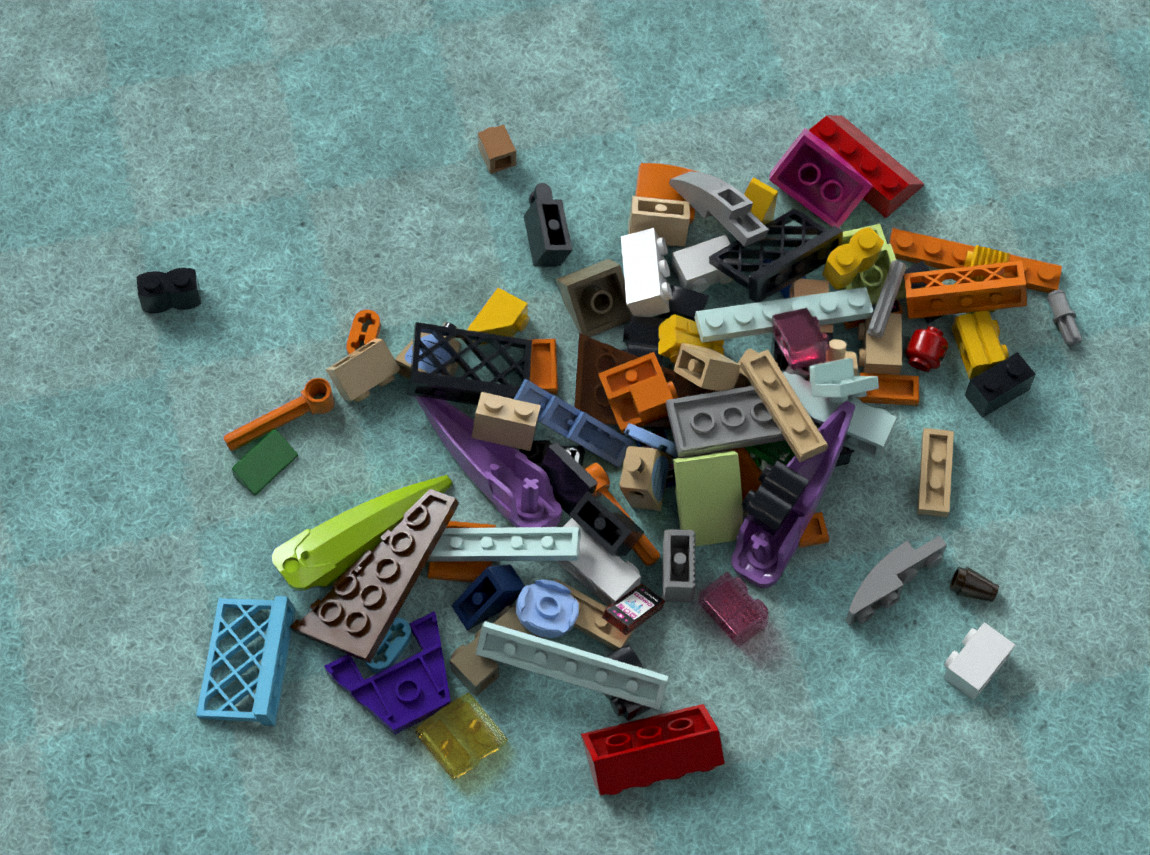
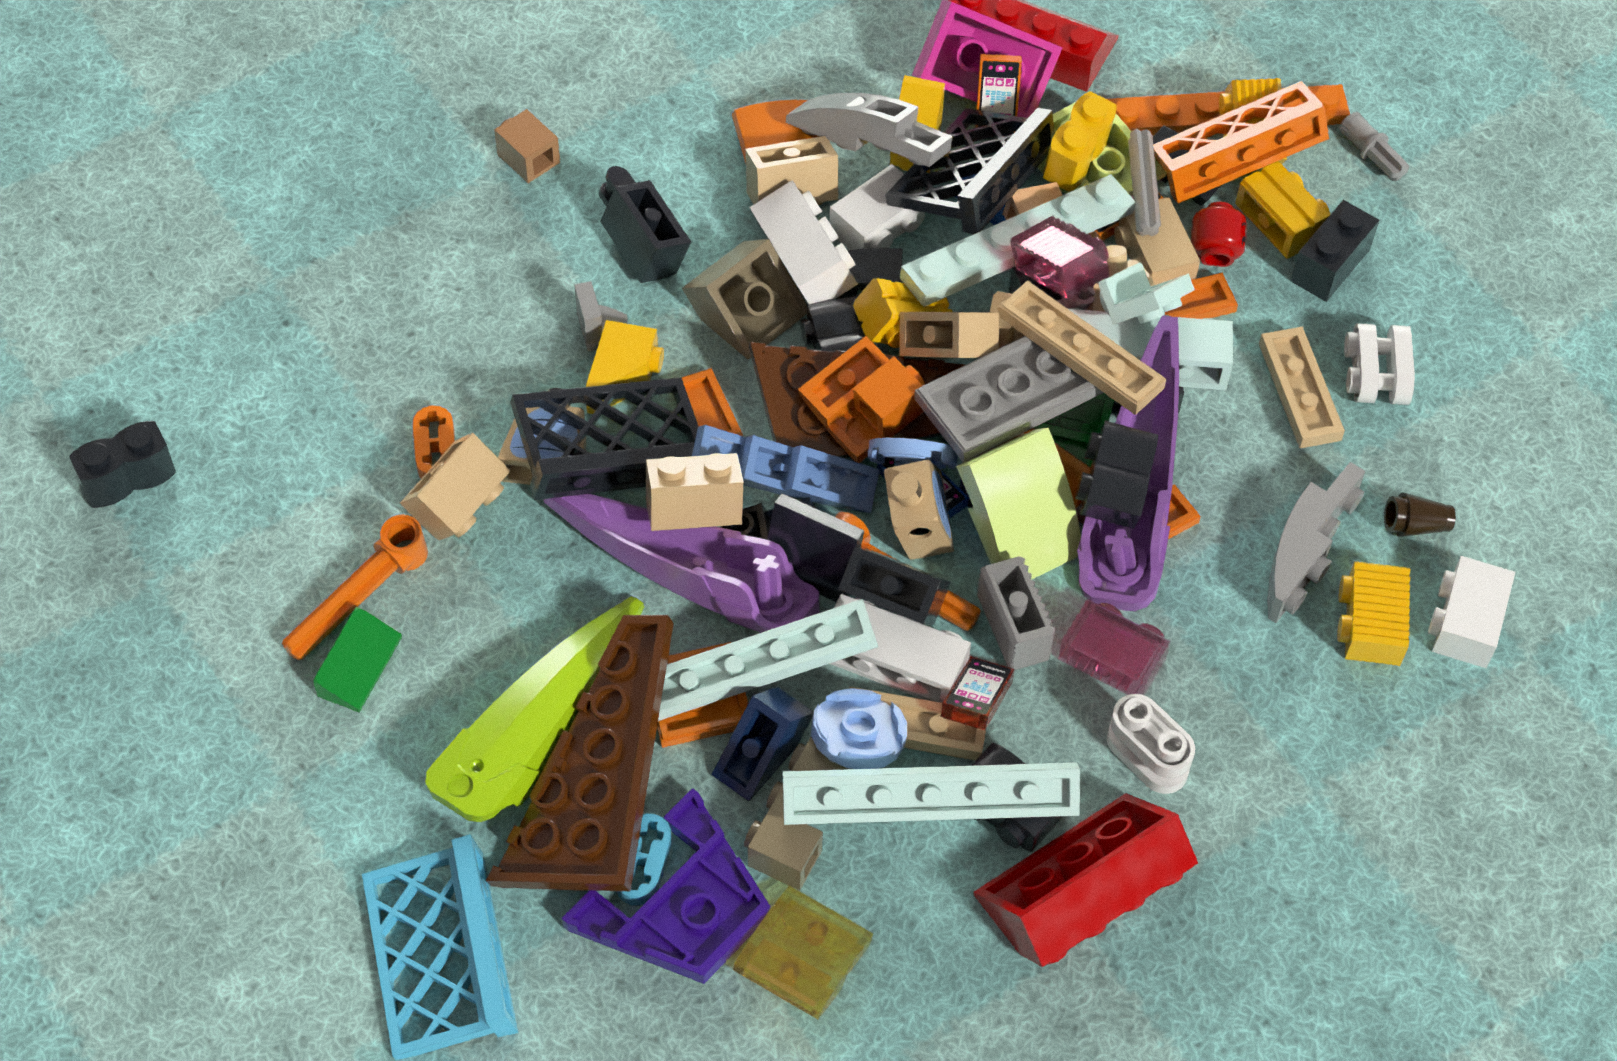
camera: 20 degrees left, 5 degrees down
(493, 279) = (593, 316): none -> light grey tile
(728, 678) = (1150, 743): none -> white brick
(819, 200) = (999, 84): none -> tile
(914, 640) = (1375, 613): none -> yellow brick
(980, 481) = (1364, 376): none -> white brick

